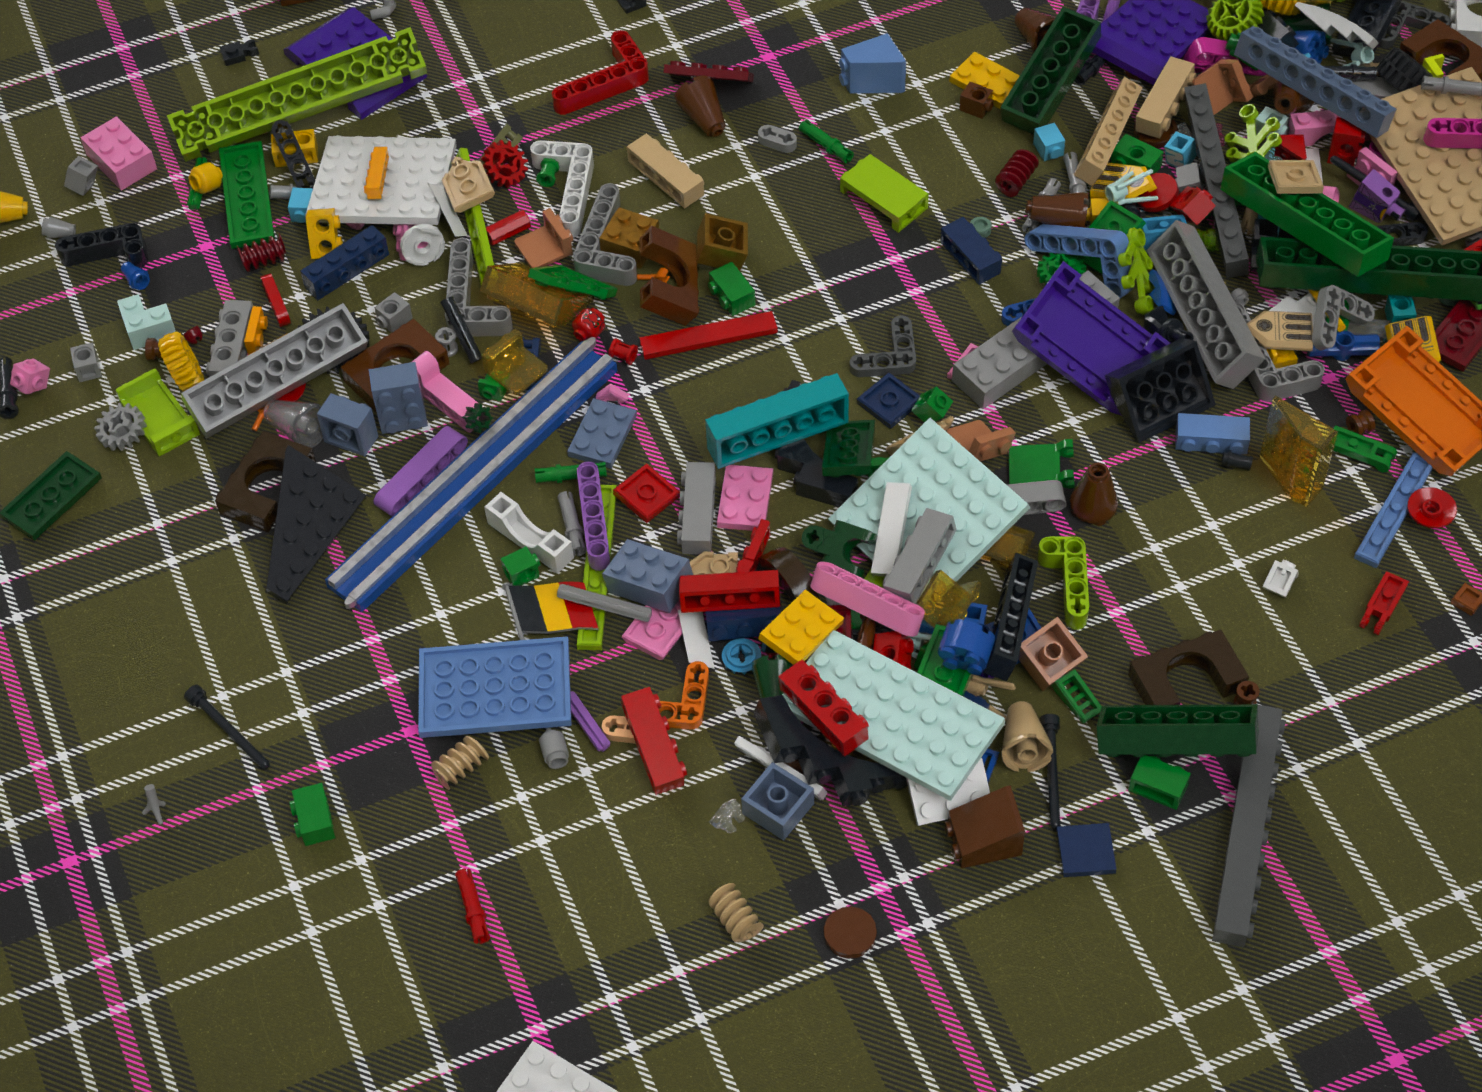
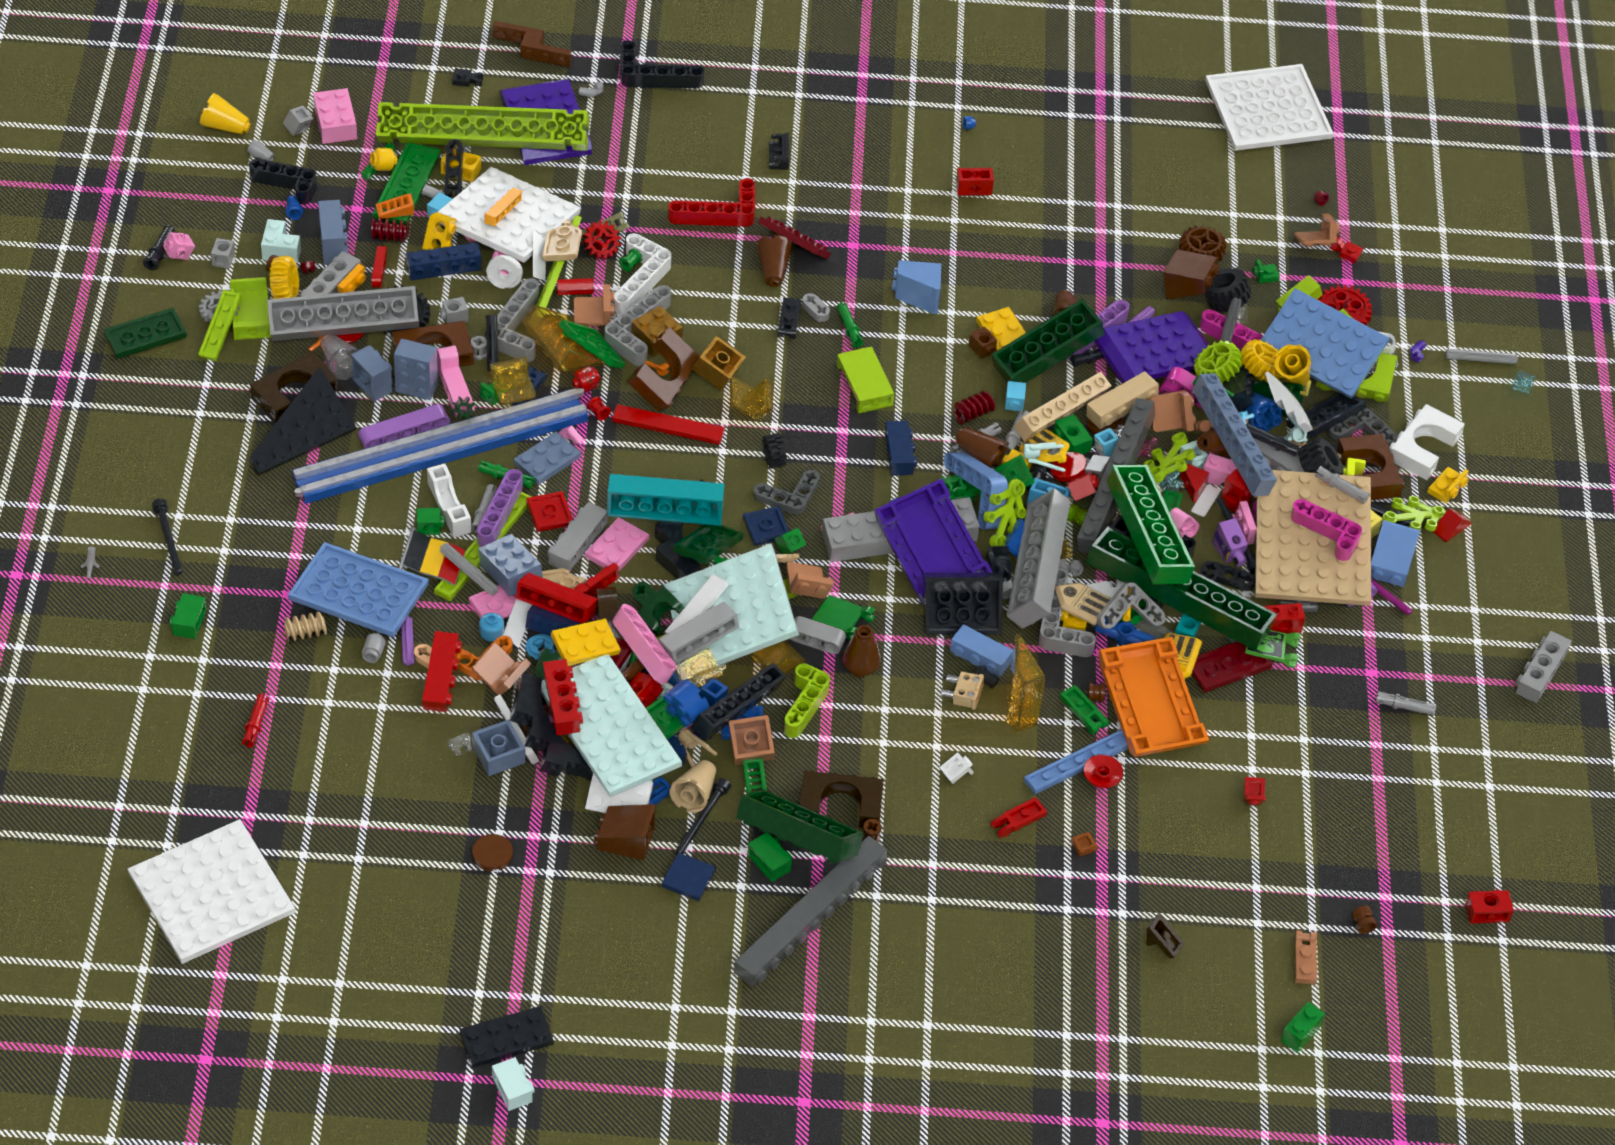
camera: 20 degrees right, 5 degrees down
(135, 447) = (219, 325): none -> lime tile
(198, 282) = (332, 229): none -> sand blue brick
(262, 214) = (401, 206): none -> orange slope
(665, 170) = (715, 294): tan brick -> none
(673, 659) = (491, 626): none -> dark azure head
(717, 706) = (499, 669): none -> nougat bracket
(731, 289) = (706, 399): green brick -> none
(733, 913) = (422, 803): tan piece -> none
(757, 161) = (789, 317): none -> black plate
(785, 267) = (752, 401): none -> clear yellow bracket
(846, 312) = (774, 450): none -> black tyre
(982, 226) = (921, 435): sand green tile -> none
(1228, 484) = (967, 689): none -> tan piece
(1295, 176) = (1156, 493): tan plate -> none

